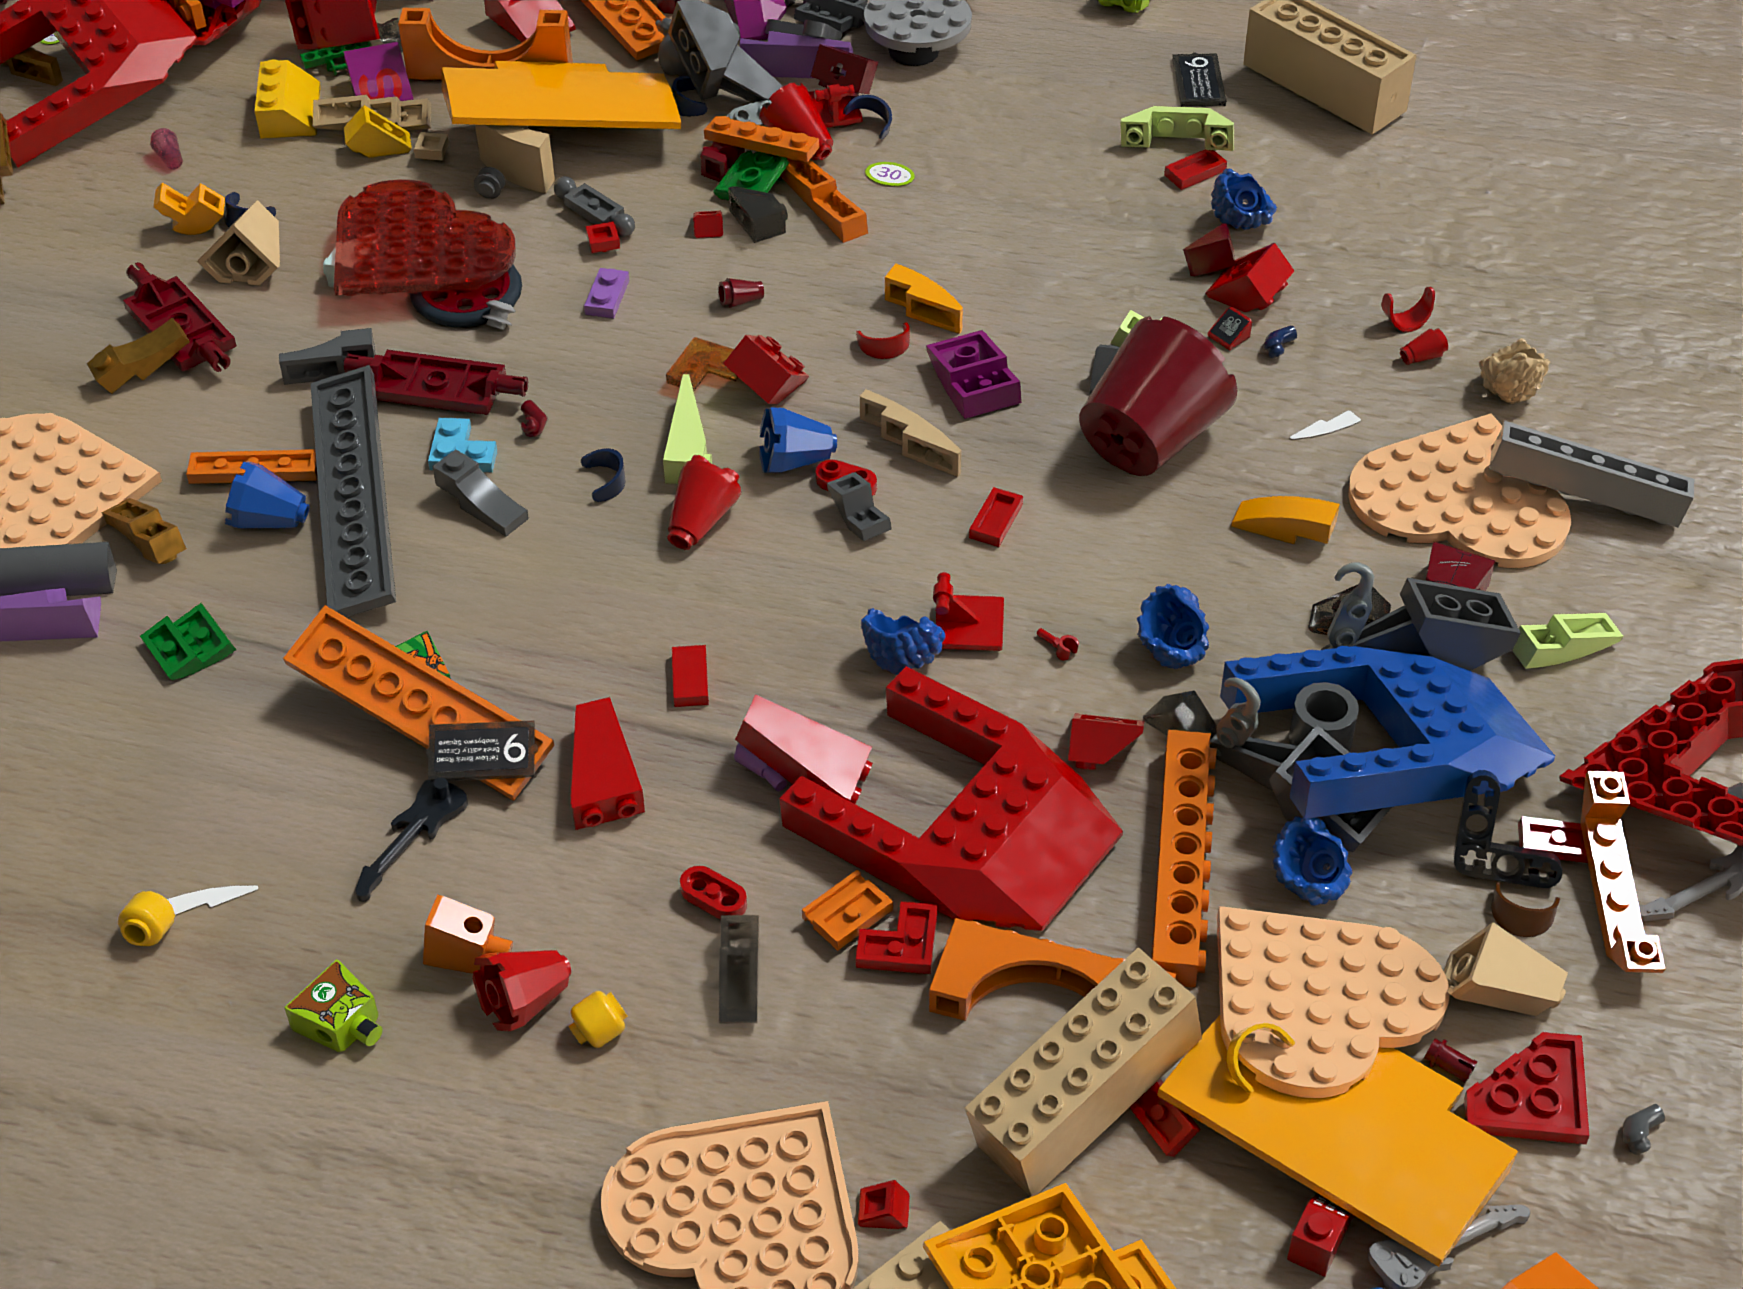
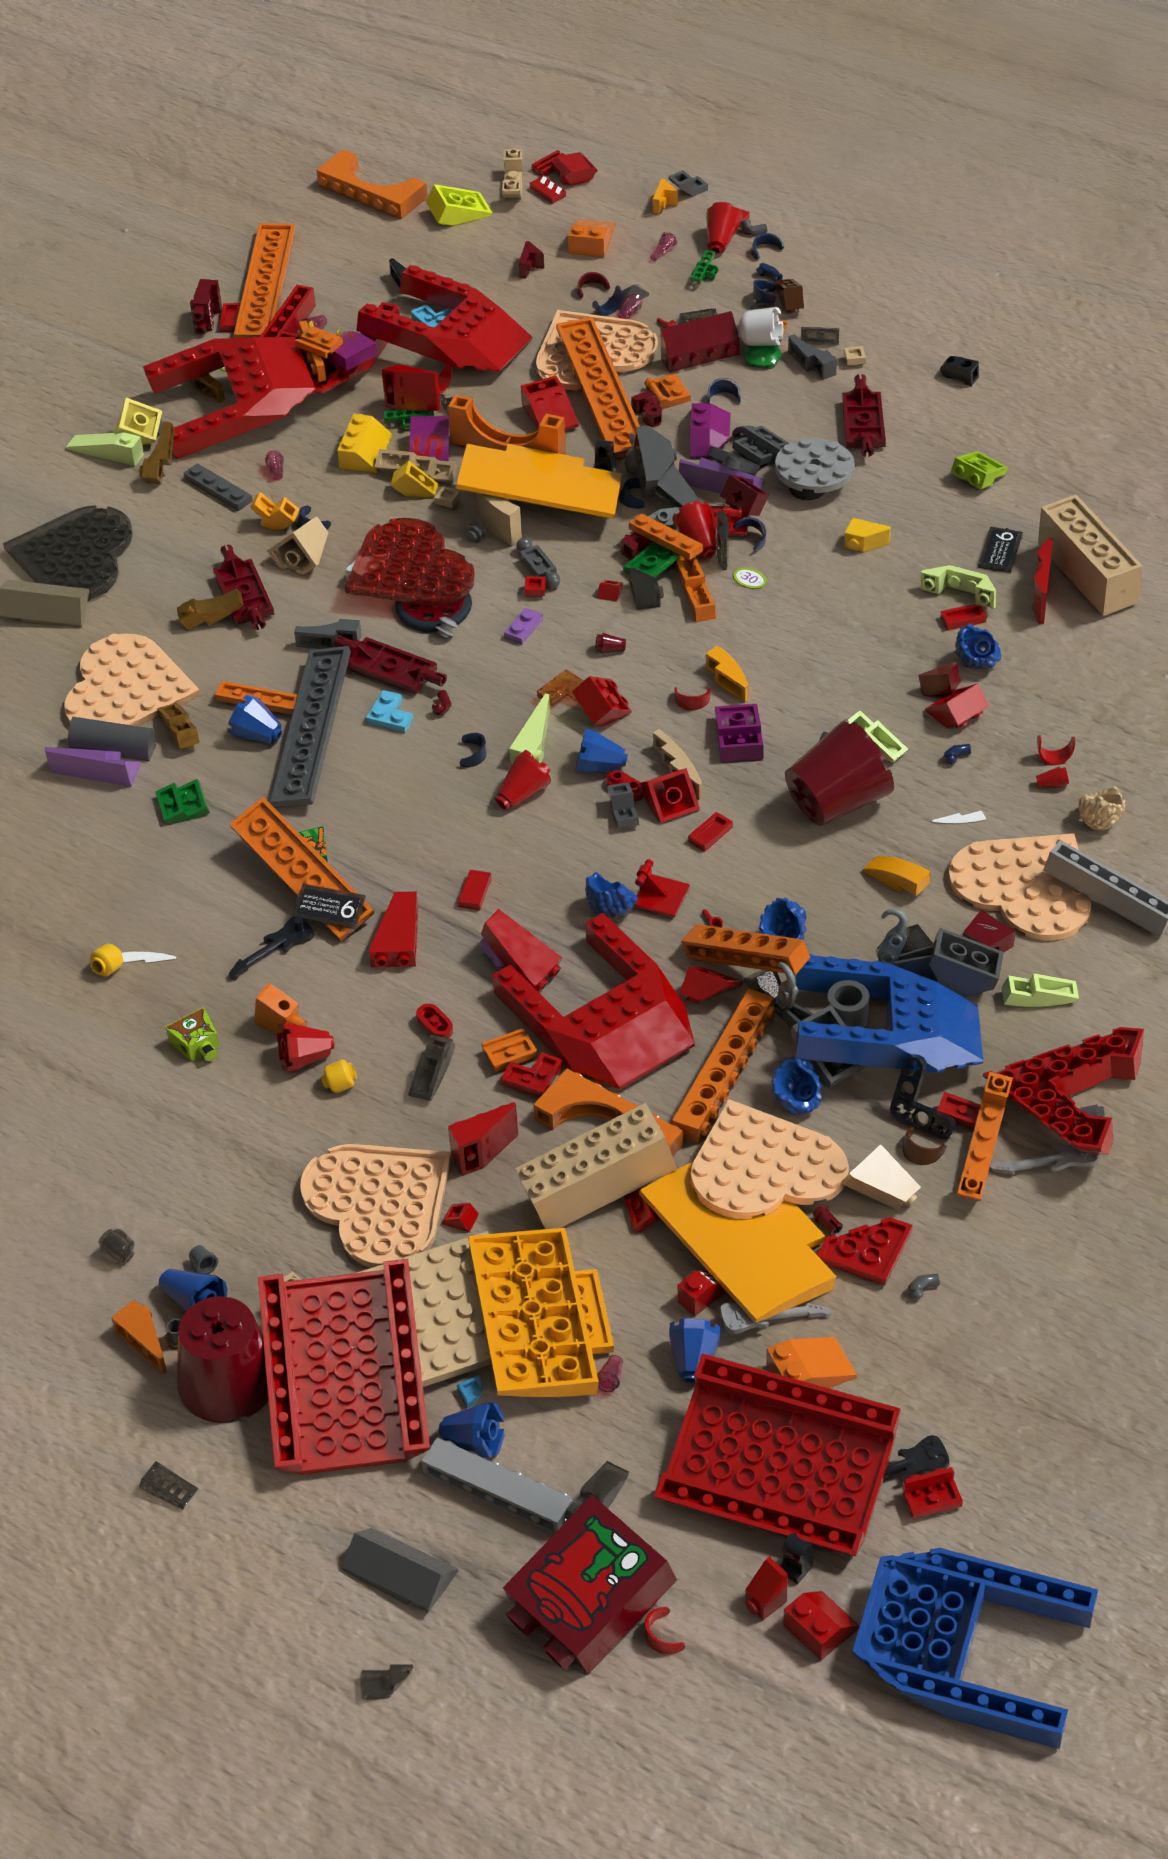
camera: 20 degrees right, 0 degrees up
(91, 192) = (218, 487): none -> dark grey plate
(478, 494) = (388, 746): dark grey slope -> none
(631, 52) = (605, 454): none -> black leg
(840, 127) = (722, 540): none -> clear smoke slope
(868, 1067) = (482, 1137): none -> red slope
(919, 477) = (670, 795): none -> red slope
(1022, 92) = (866, 535): none -> yellow slope
(1143, 671) = (745, 948): none -> orange brick
(1231, 329) = (927, 738): slope -> none
(1233, 1049) = (694, 1169): yellow helmet -> none
(1284, 105) = (1041, 580): none -> red slope

